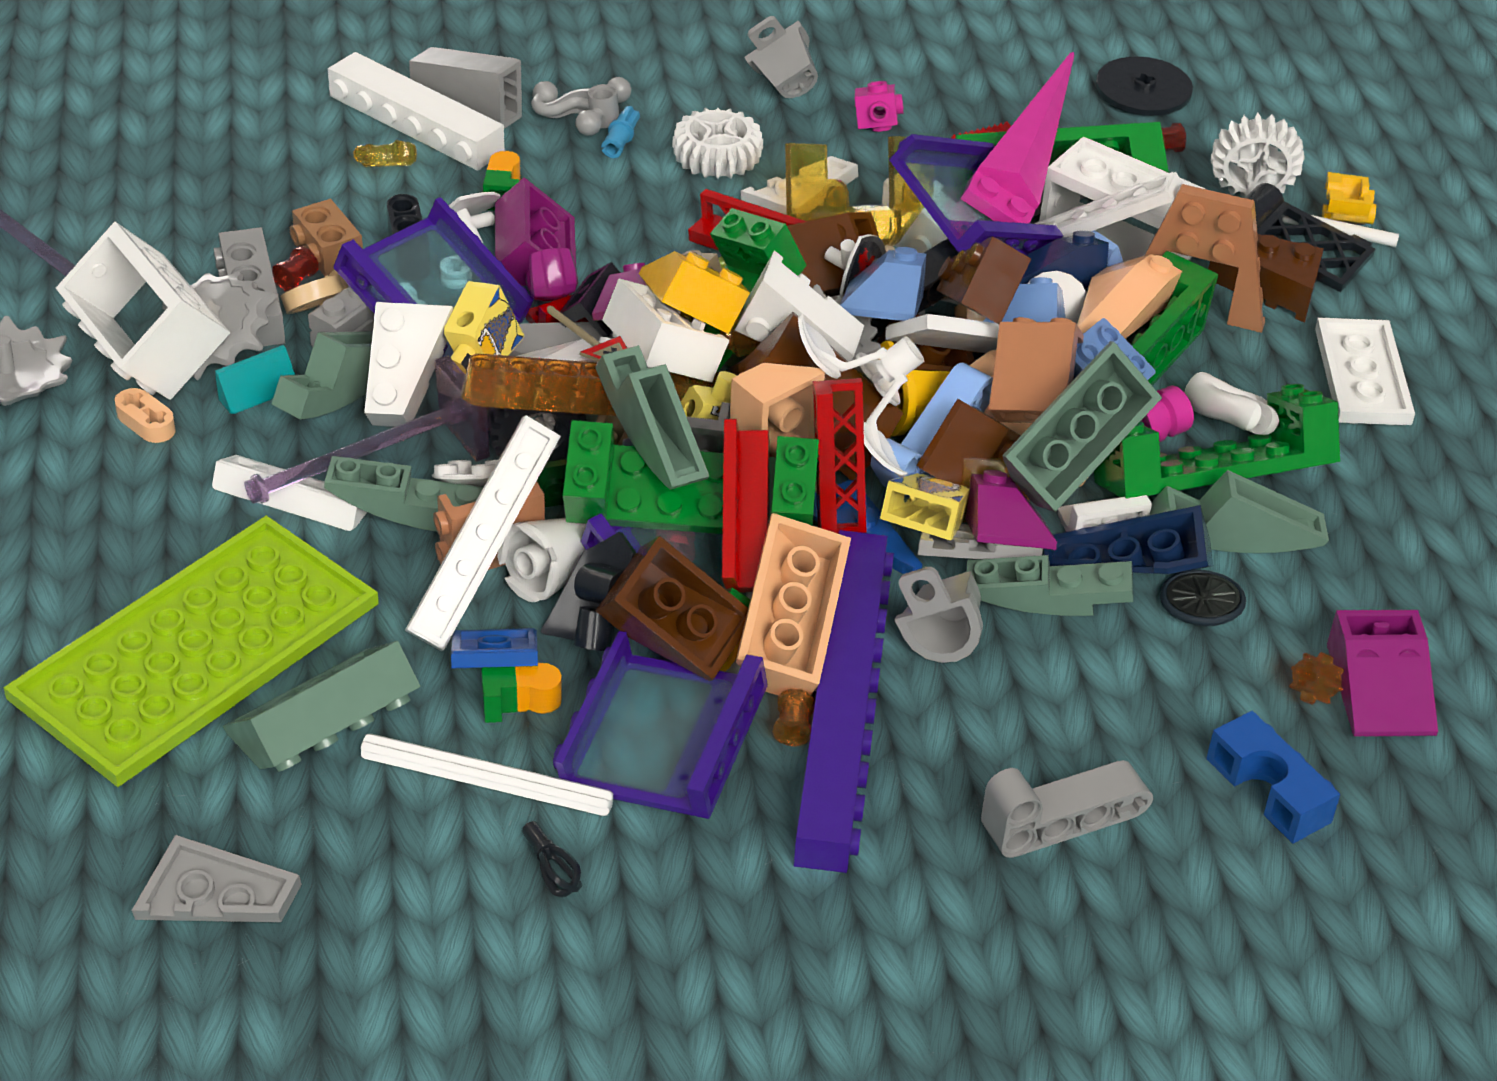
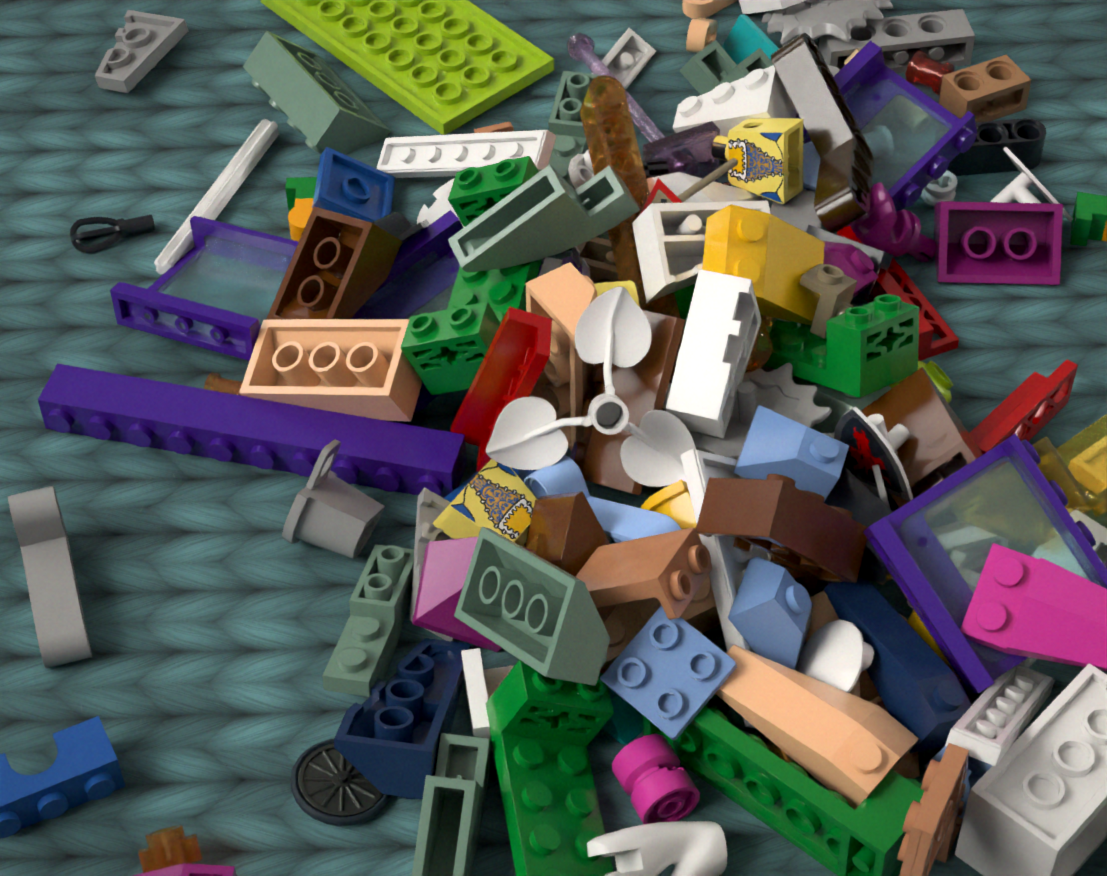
camera: 100 degrees right, 5 degrees up
(234, 400) = (701, 34): none -> light nougat beam
(442, 284) = (845, 157): none -> dark brown beam
(744, 504) = (498, 293): red fence -> none

